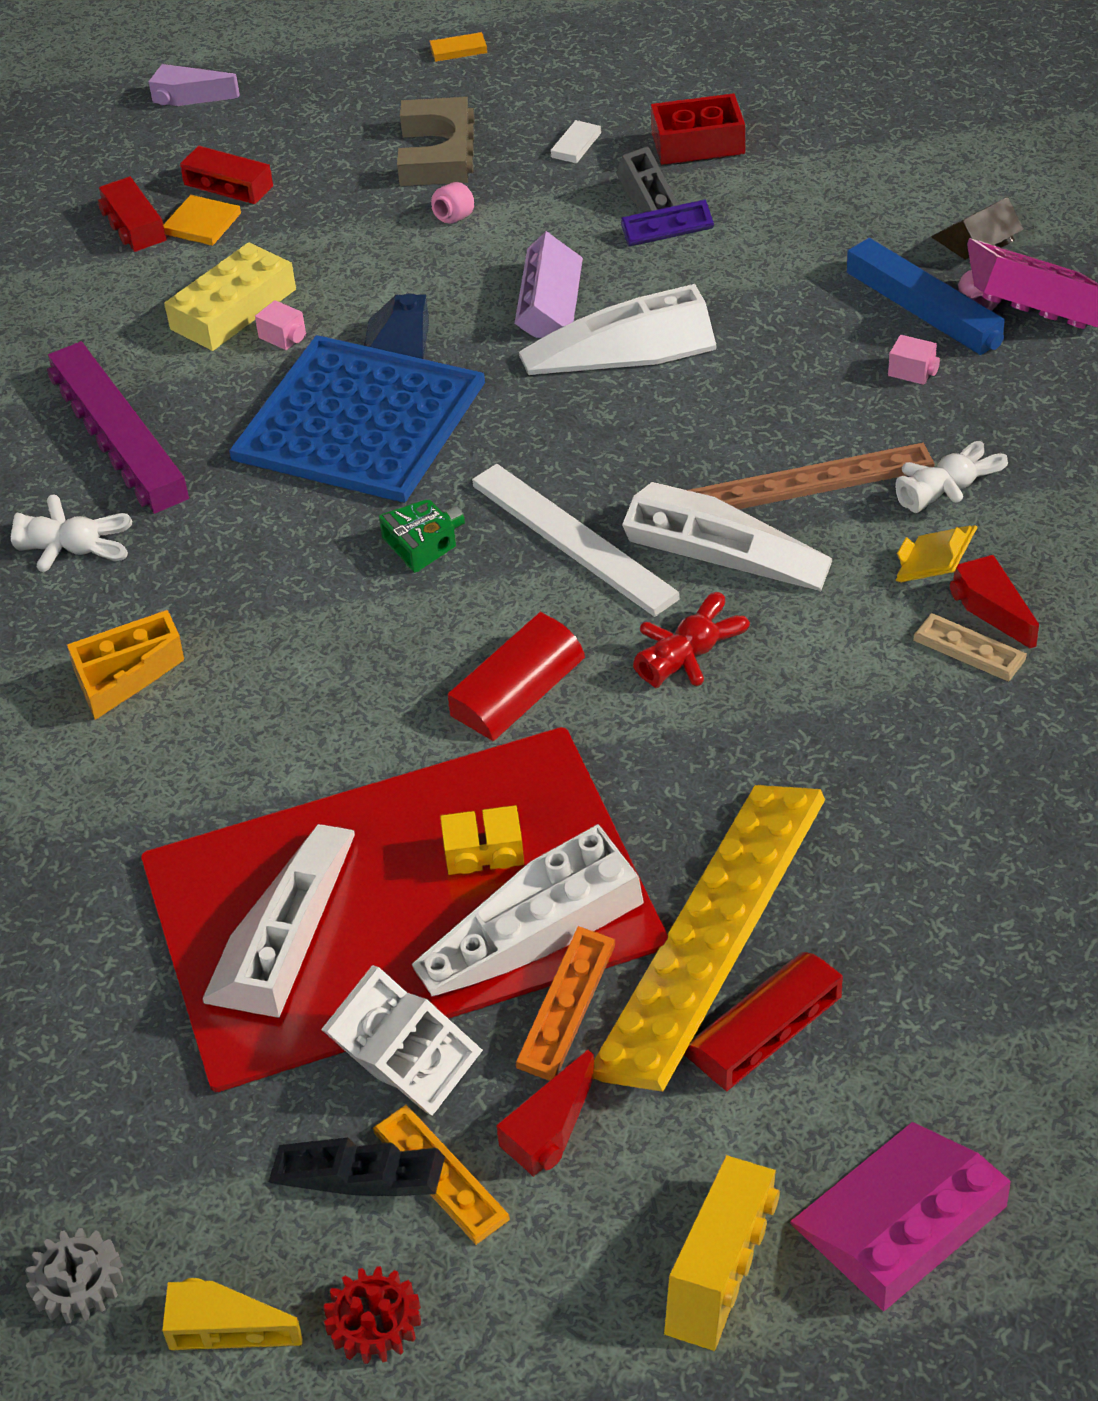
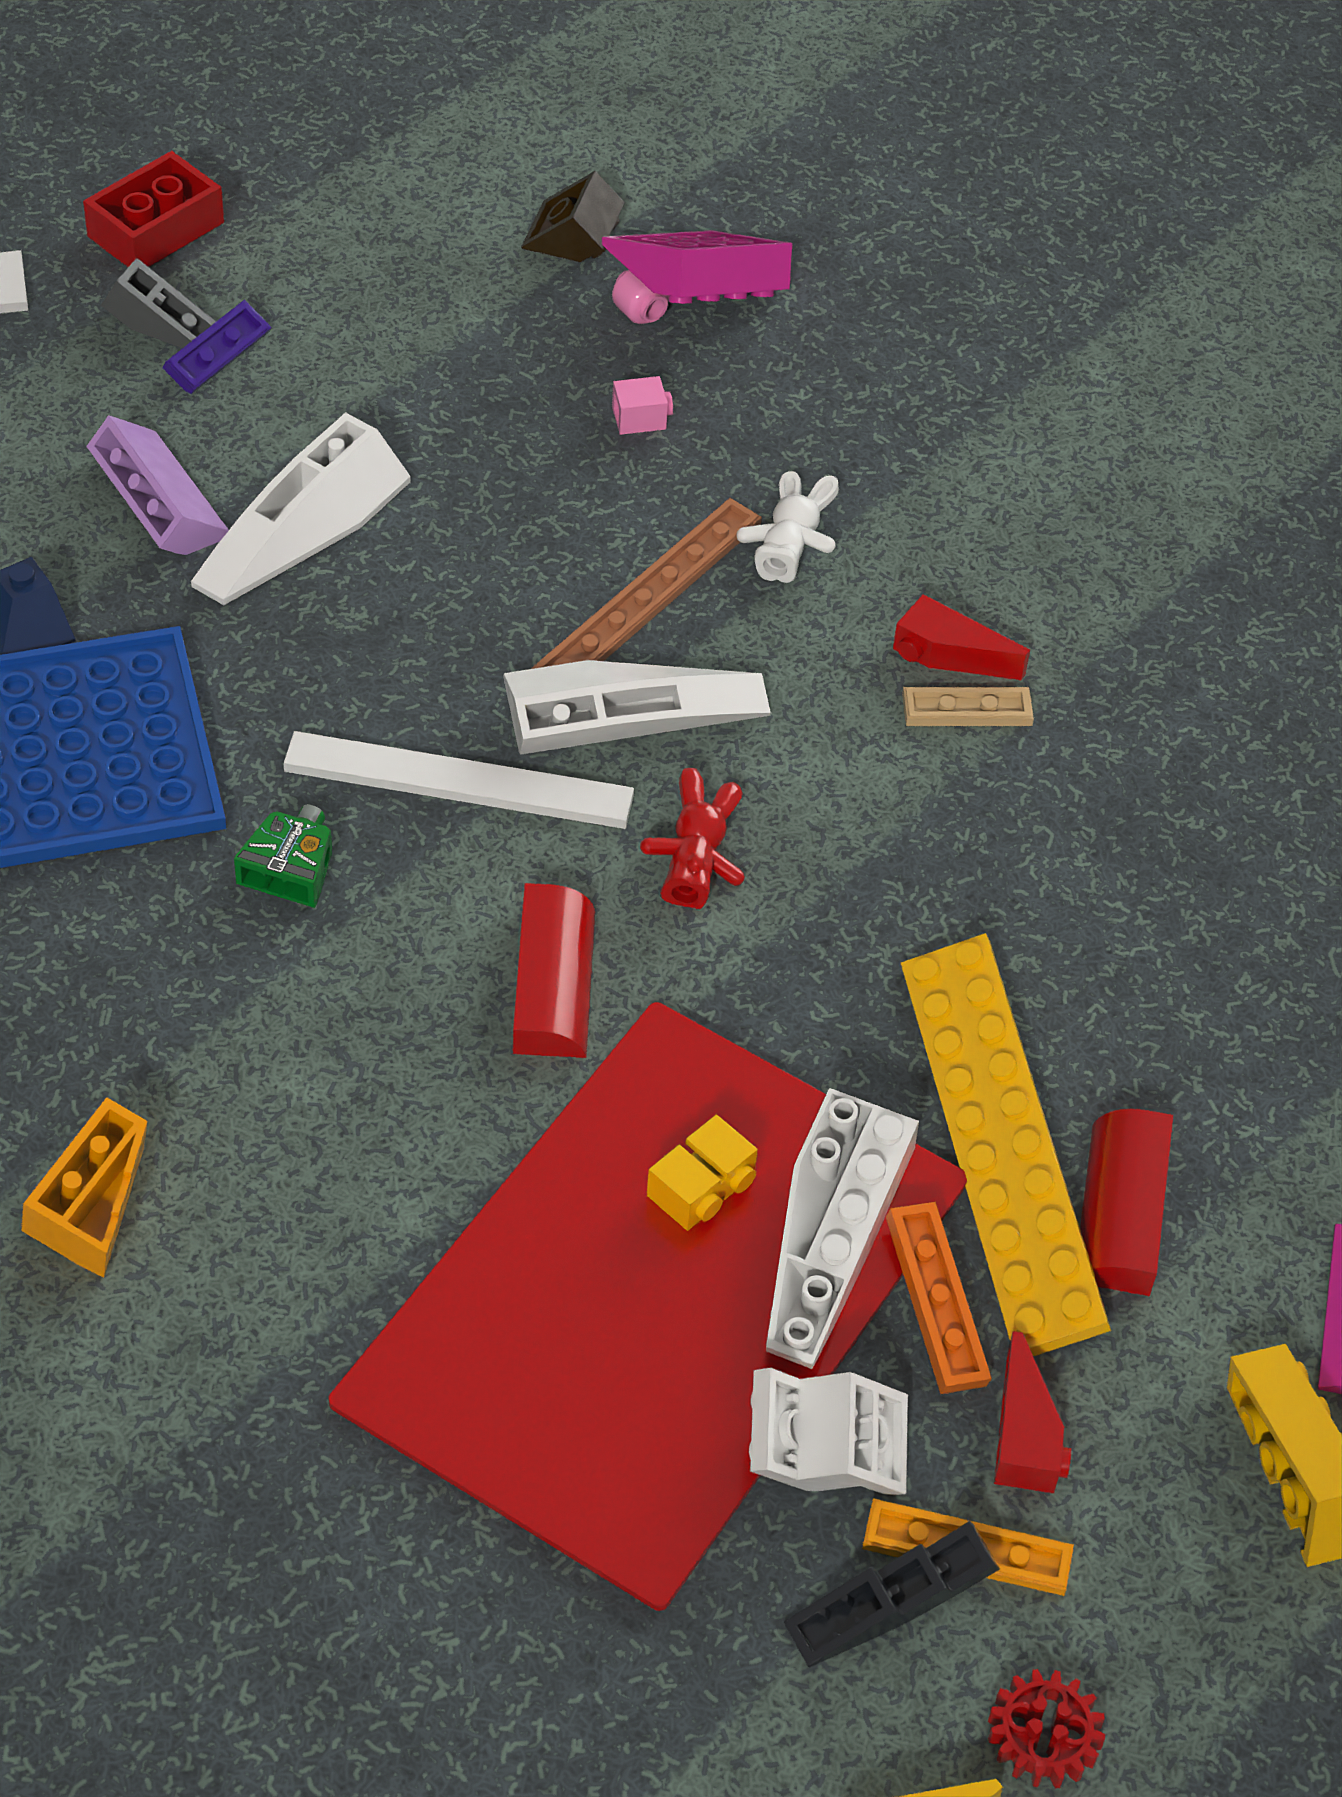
camera: 45 degrees left, 5 degrees up
(276, 933) = (580, 1391): white wedge -> none
(926, 296) = (586, 323): blue brick -> none
(933, 553) = (857, 619): yellow piece -> none

